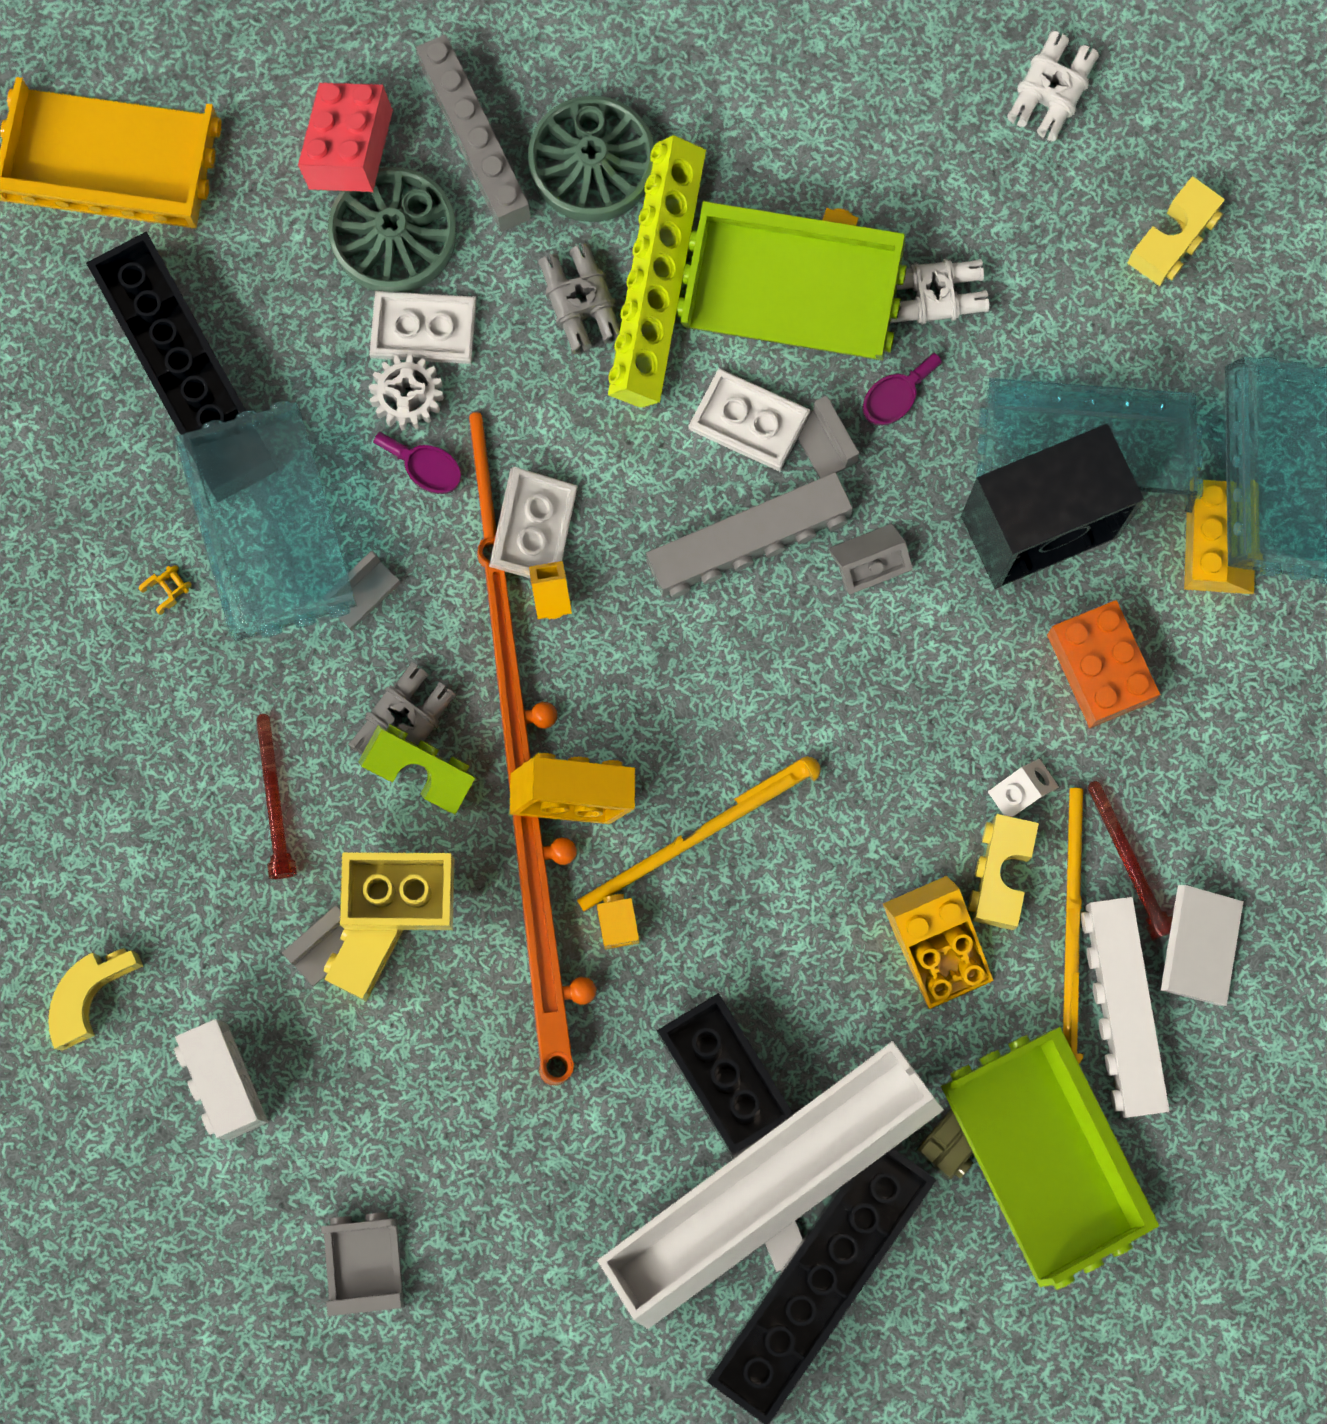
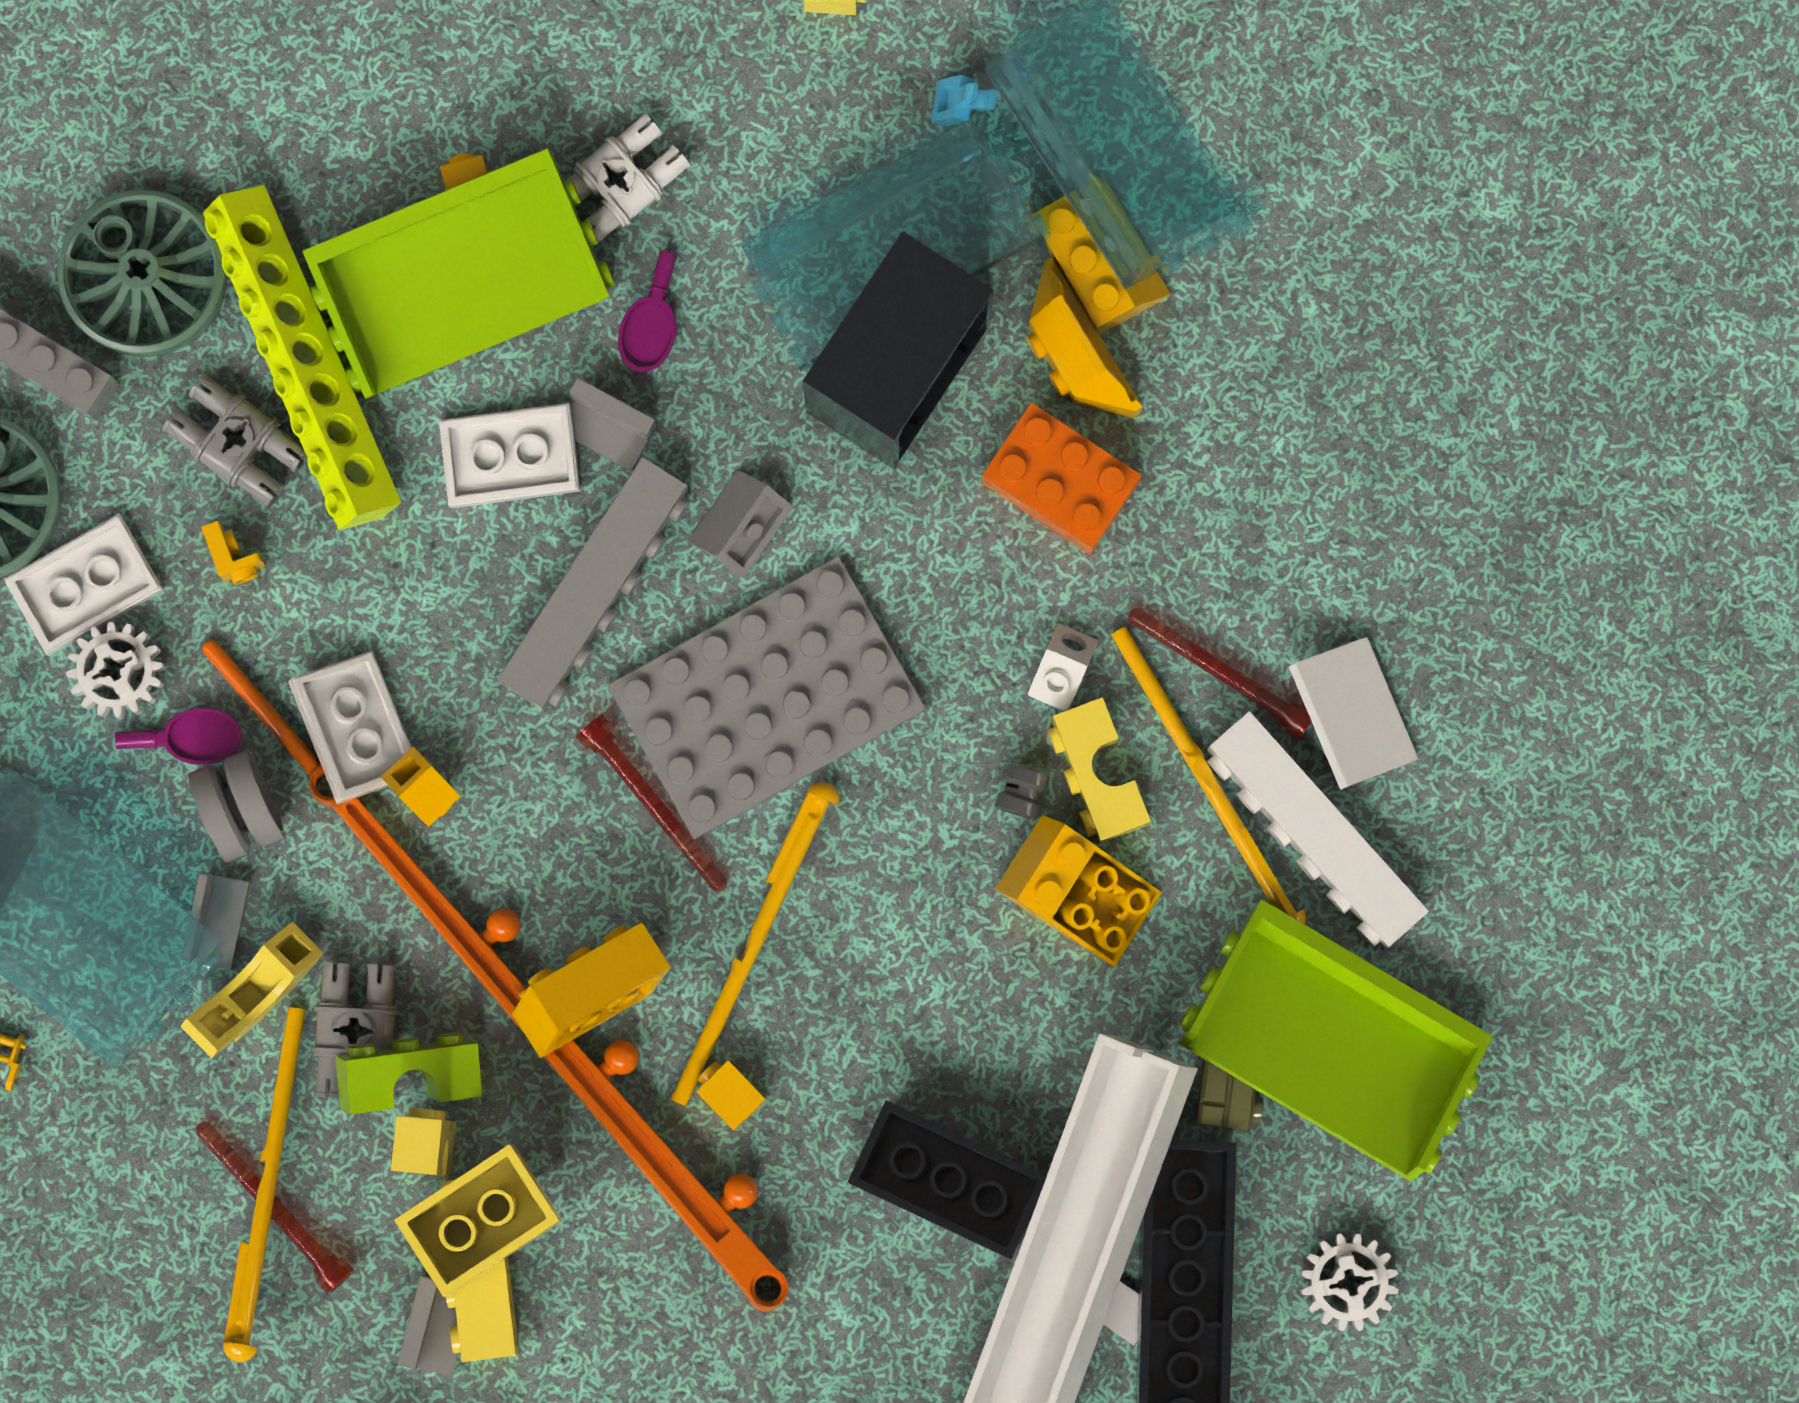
camera: 35 degrees left, 5 degrees up
(237, 819) = (251, 1255): none -> yellow bar
(356, 651) = (254, 991): none -> light yellow arch
(396, 817) = (423, 1142): none -> light yellow arch
(423, 524) = (231, 808): none -> light grey wheel
(526, 360) = (223, 548): none -> yellow bracket
(687, 636) = (600, 739): none -> clear red piece
(813, 681) = (766, 698): none -> light grey plate
(942, 851) = (1021, 792): none -> dark grey wheel
(944, 1344) = (1343, 1261): none -> white gear
(1167, 588) = (1075, 349): none -> yellow wedge
(1193, 377) = (957, 98): none -> medium azure plate

